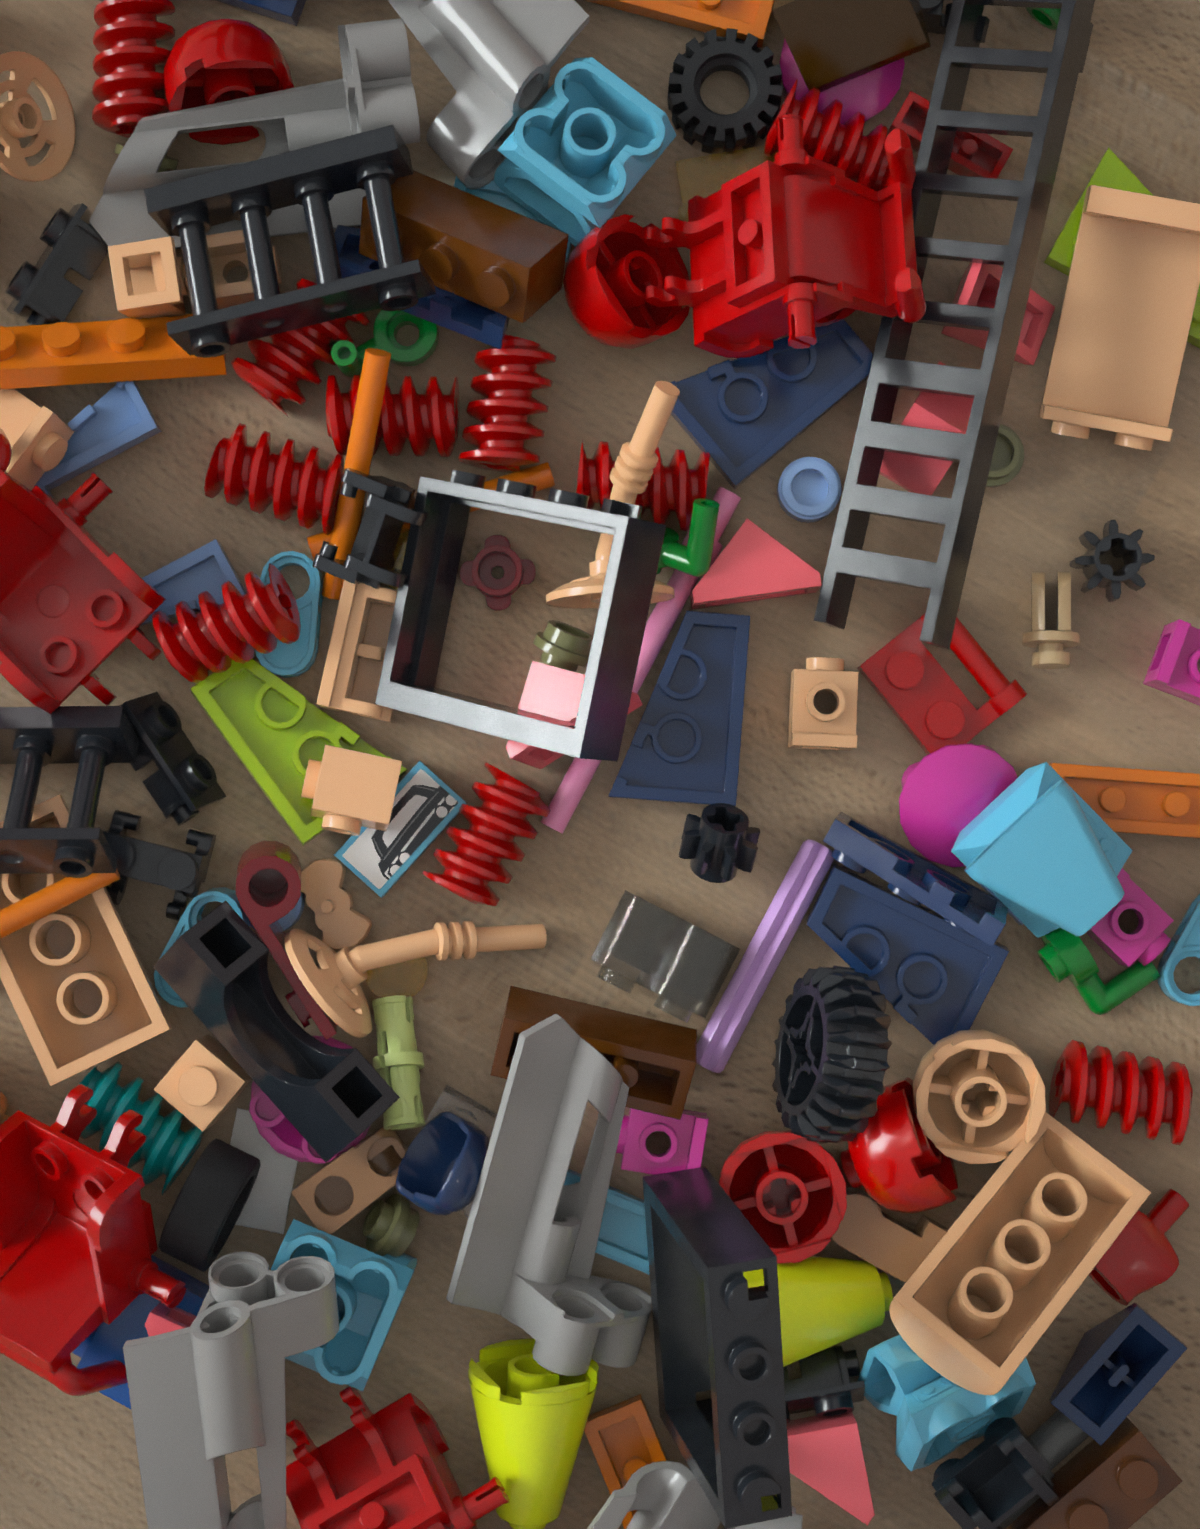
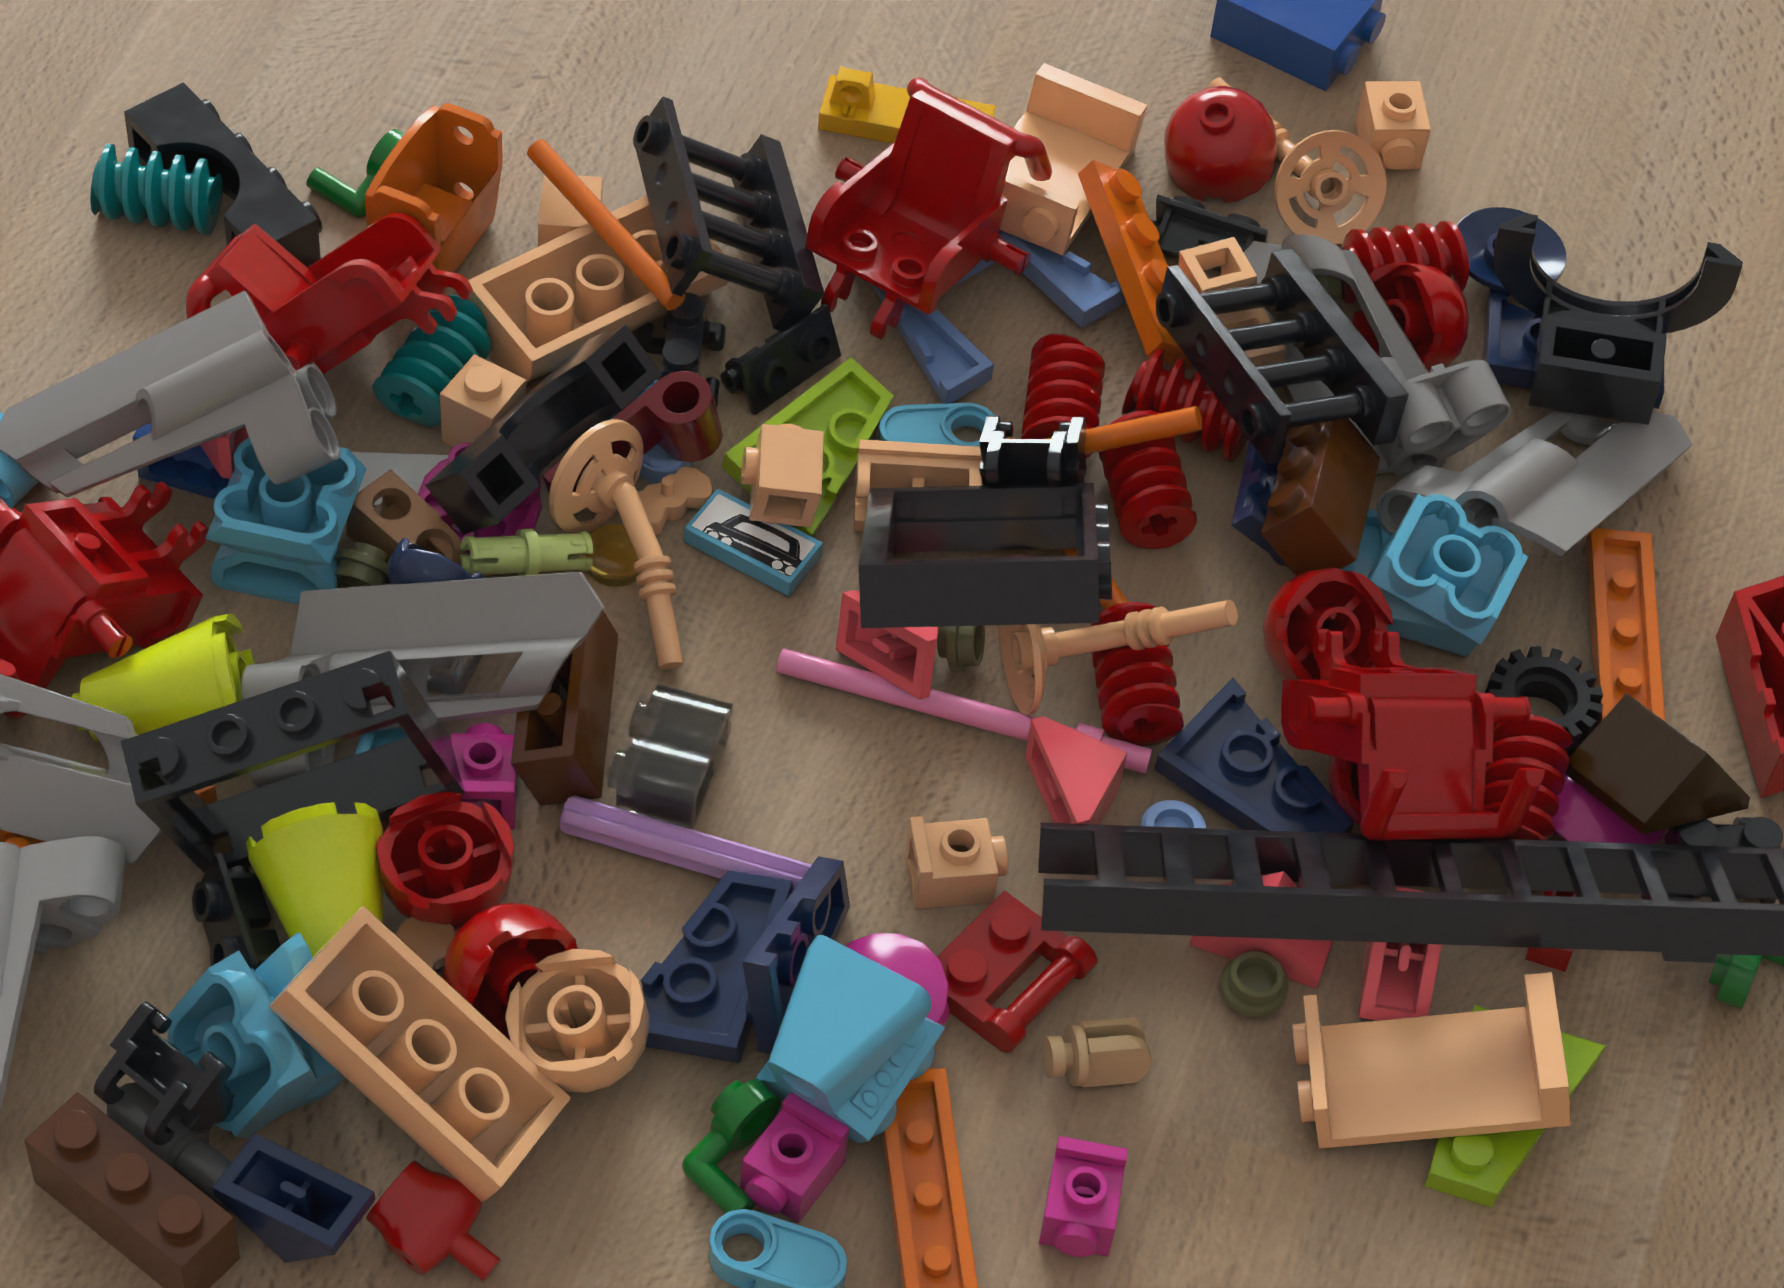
camera: 70 degrees right, 35 degrees down
(209, 1204) = (392, 394): black tyre -> none
(231, 628) = (918, 367): red piece -> none
(386, 325) = (1217, 477): green plate -> none
(488, 838) = (760, 598): red piece -> none
(507, 405) = (1182, 562): red piece -> none
(693, 719) = (912, 759): dark blue wing -> none
(697, 555) = (1076, 696): green plate -> none
(719, 843) = (795, 784): black gear -> none
(831, 1054) = (602, 878): black gear -> none
(831, 1461) = (162, 957): coral slope -> none
(1121, 546) = (1174, 1100): black gear -> none
(1122, 1089) = (601, 1182): red piece -> none

